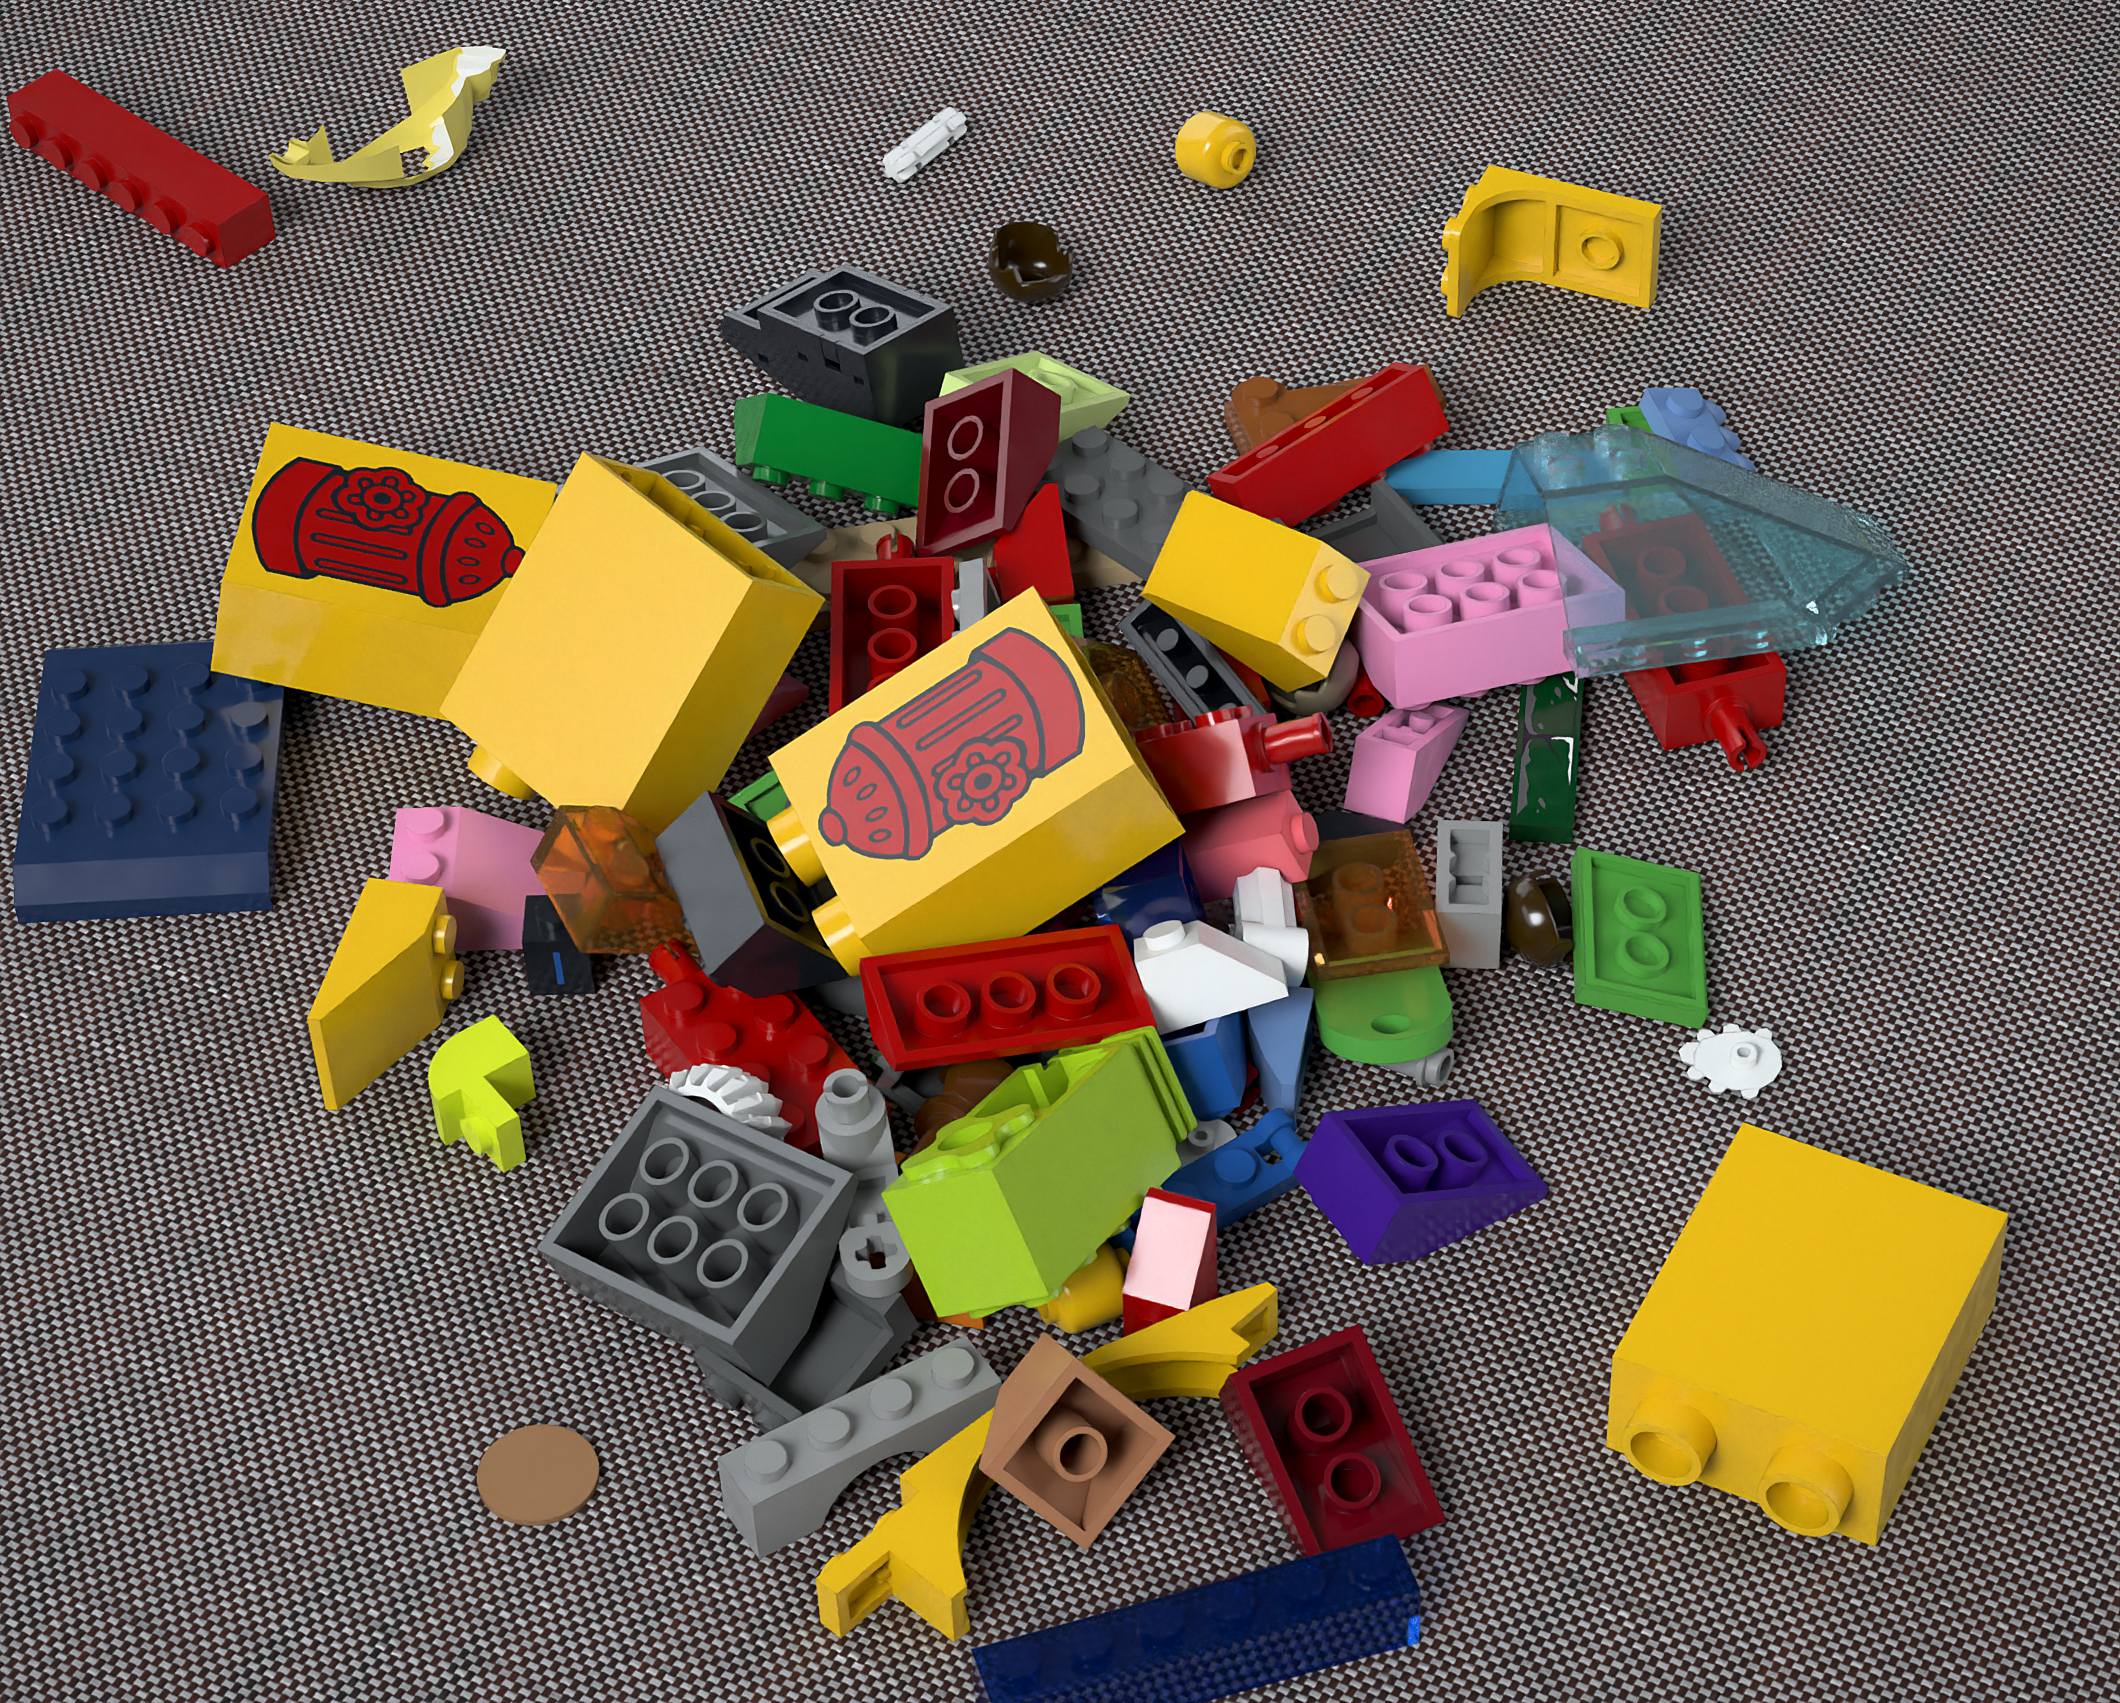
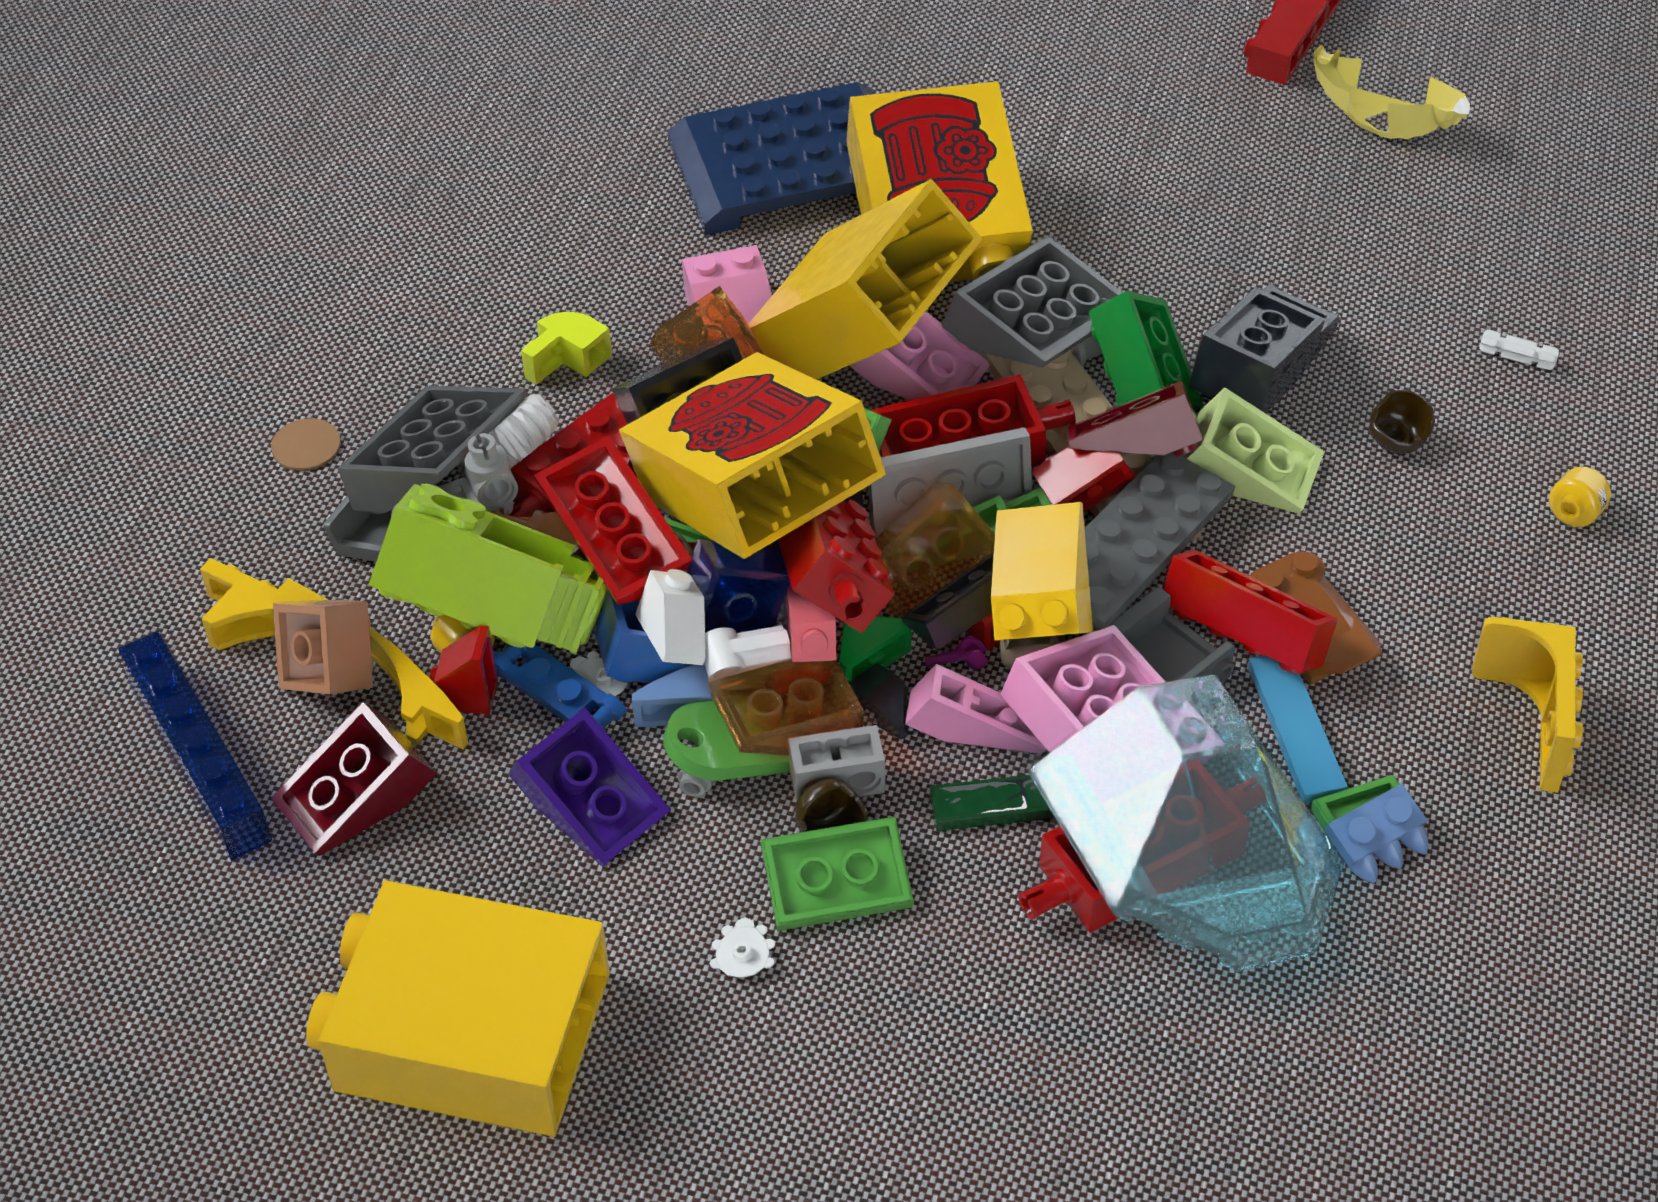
camera: 75 degrees right, 5 degrees up
(383, 986) = (615, 276): yellow slope -> none
(792, 1475) = (294, 537): light grey arch -> none

